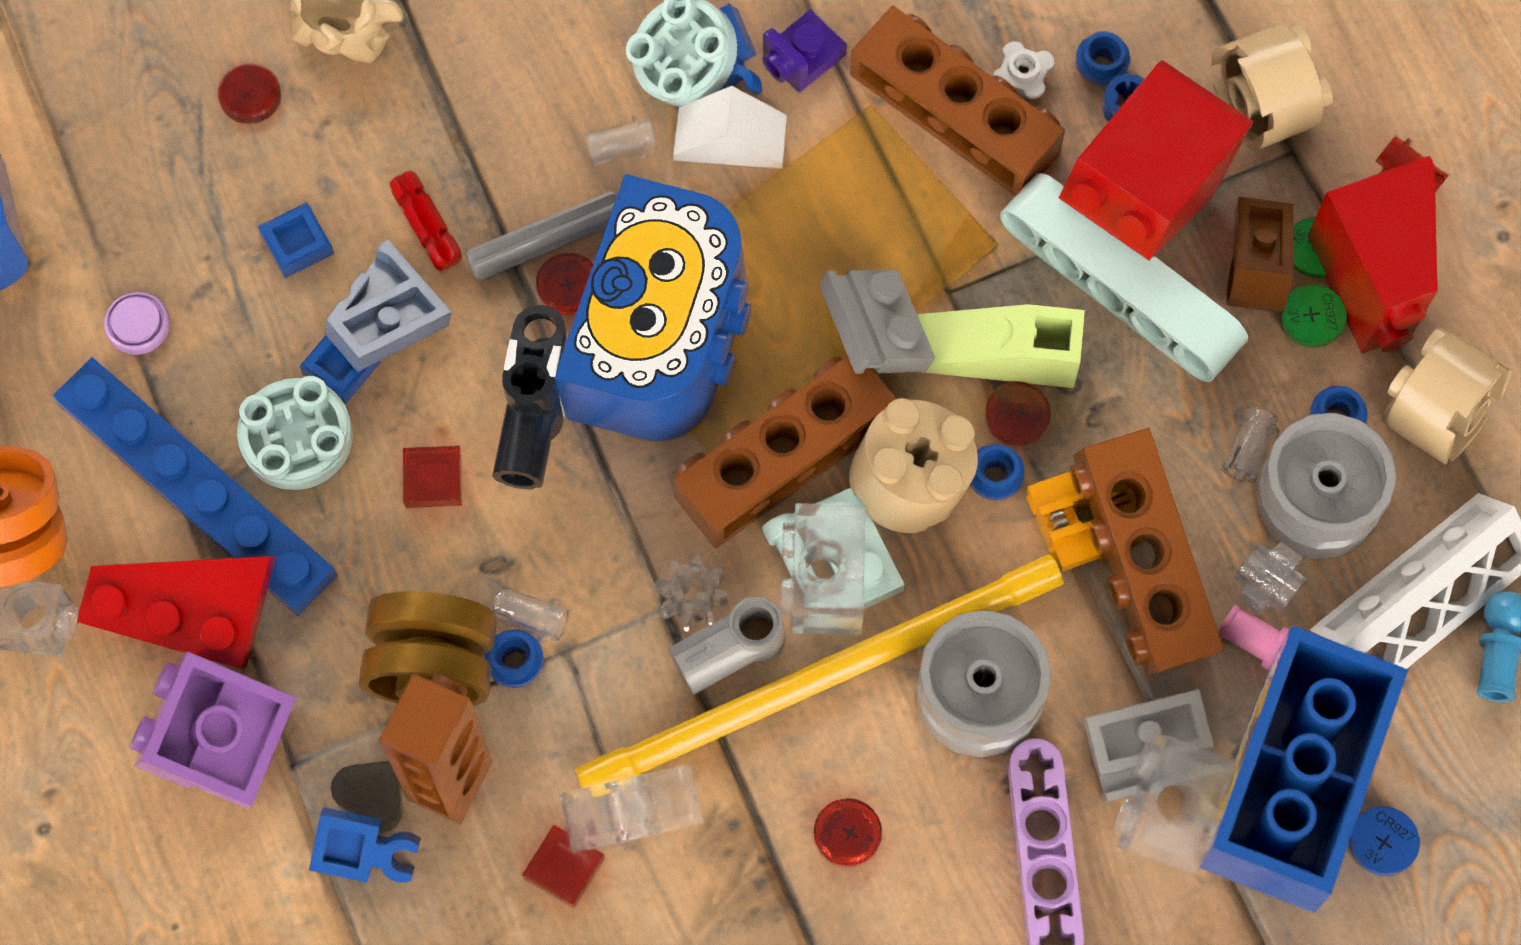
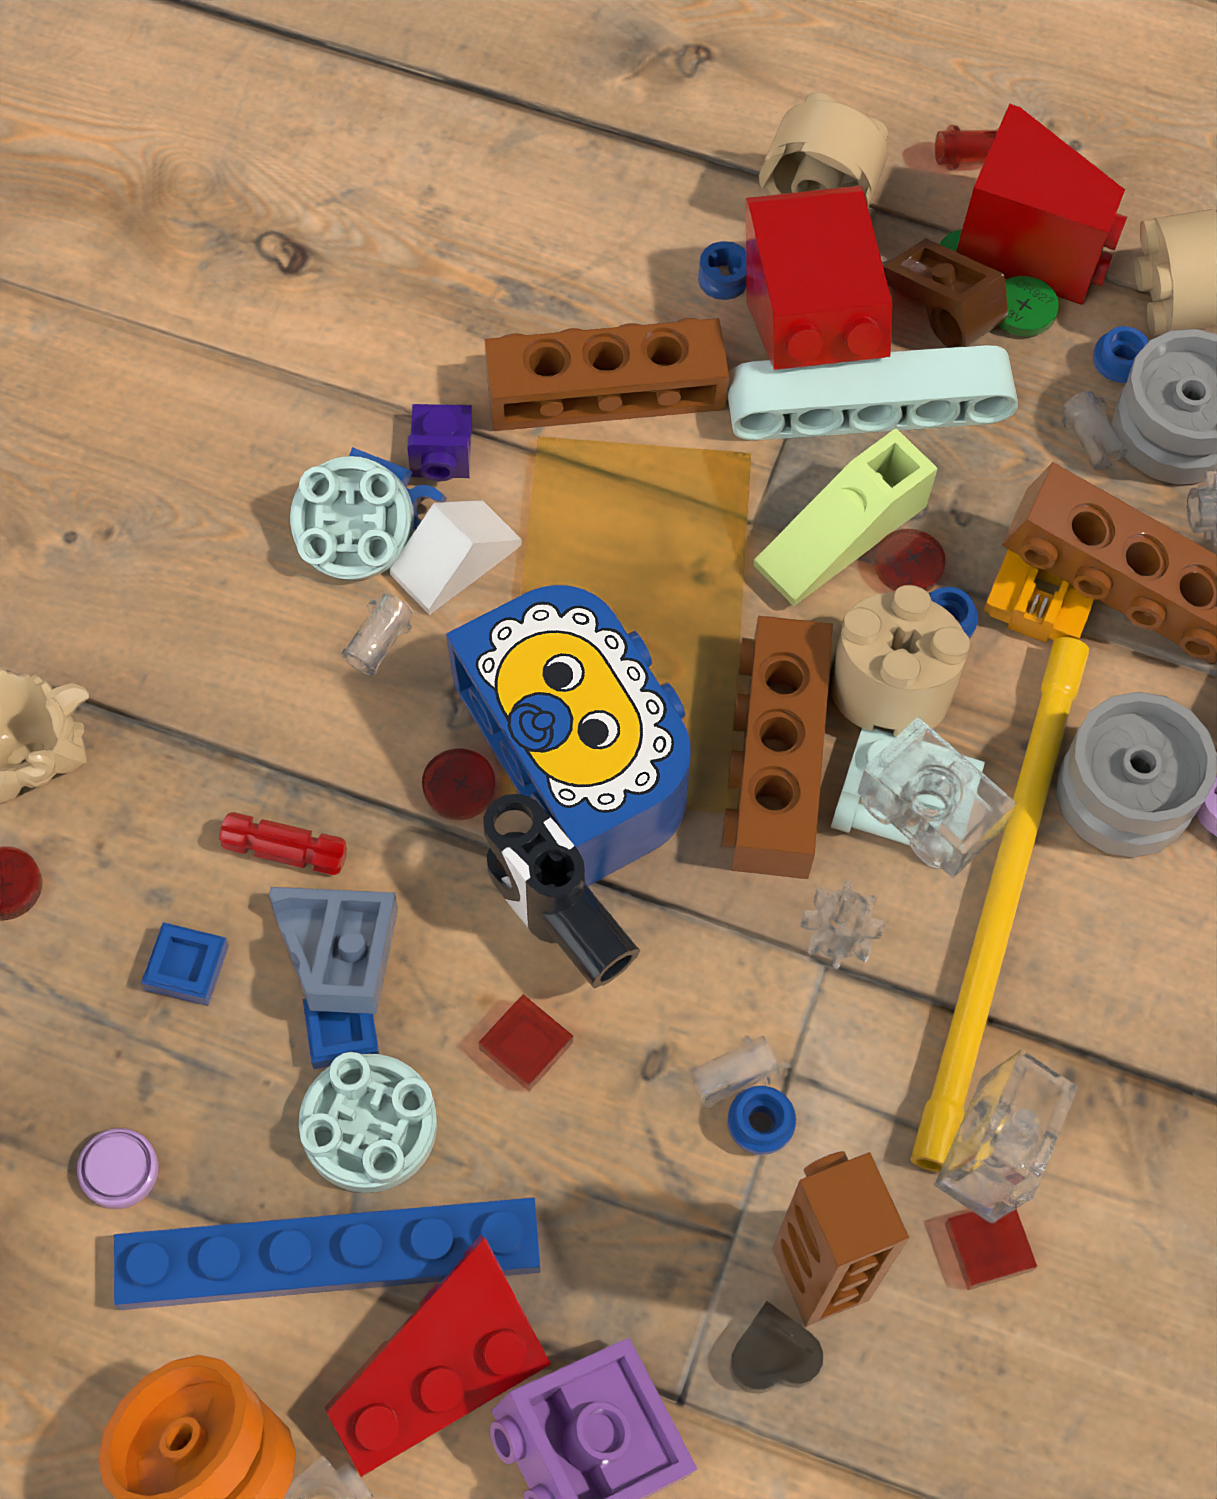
camera: 50 degrees left, 5 degrees down
(351, 845) = (817, 1405): blue plate -> none
(426, 637) = (706, 1177): pearl gold wheel -> none
(541, 236) = (397, 764): light grey axle -> none
(724, 649) = (916, 938): light grey piece -> none
(847, 832) = (1160, 991): clear red piece -> none
(877, 321) = (745, 581): light grey plate -> none
(1028, 84) = (630, 298): white plate -> none
(1102, 45) = (671, 242): blue plate -> none

